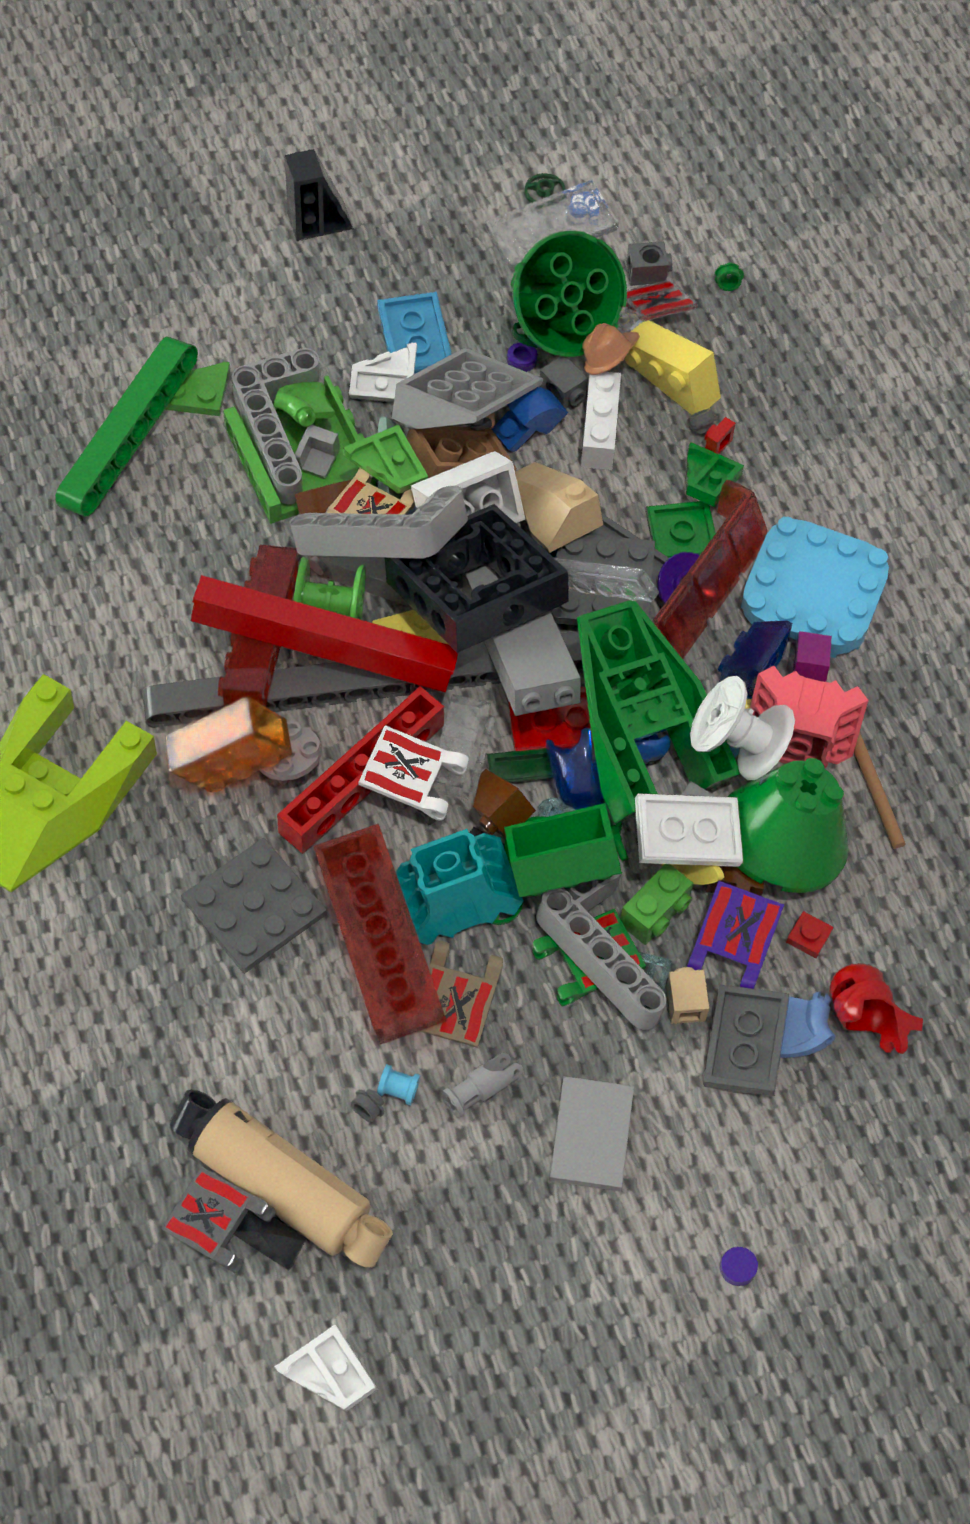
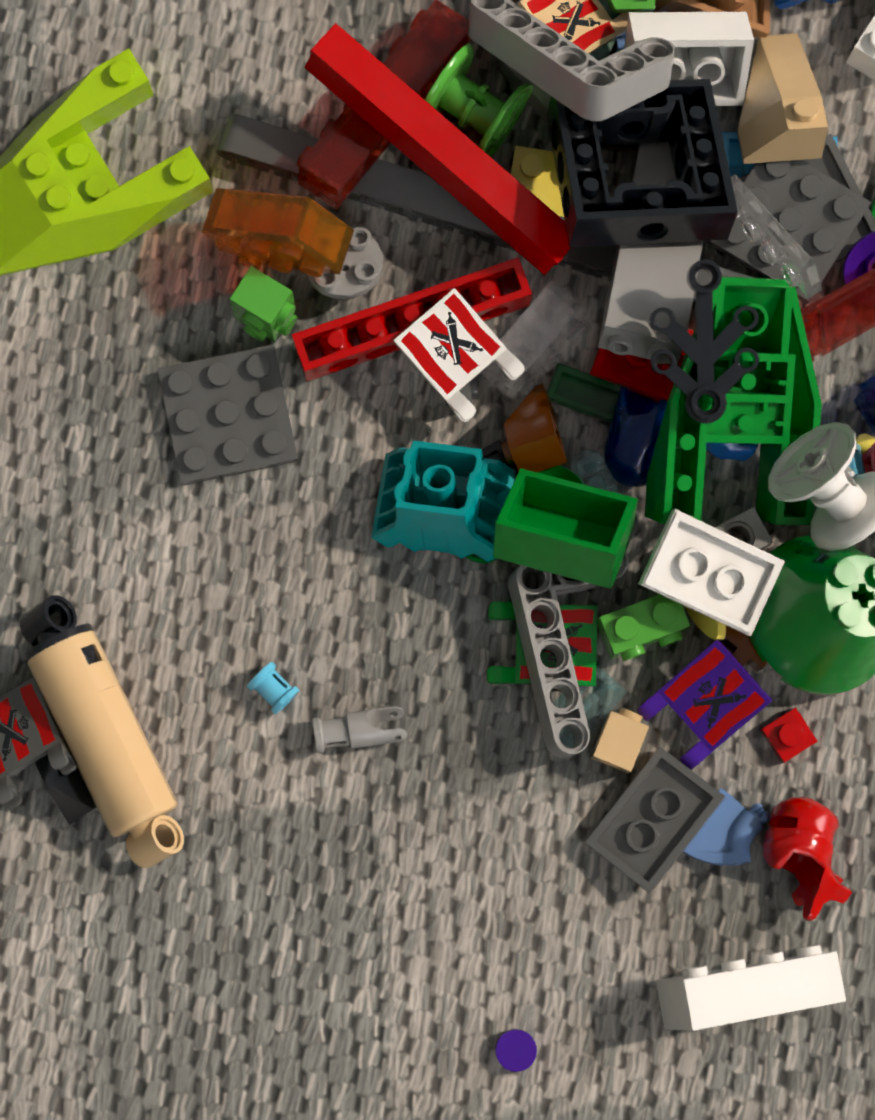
camera: 25 degrees right, 20 degrees up
(244, 807) = (263, 306): none -> bright green brick
(329, 1370) = (57, 950): white wing -> none
(368, 1105) = (233, 693): dark grey plate -> none
(379, 934) = (334, 516): clear red brick -> none
(463, 997) = (378, 624): flag -> none
(592, 1133) = (443, 836): light grey tile -> none
(597, 669) = (704, 350): none -> black plant
(616, 830) = (644, 527): green hand -> none
(888, 1126) = (750, 991): none -> white wedge

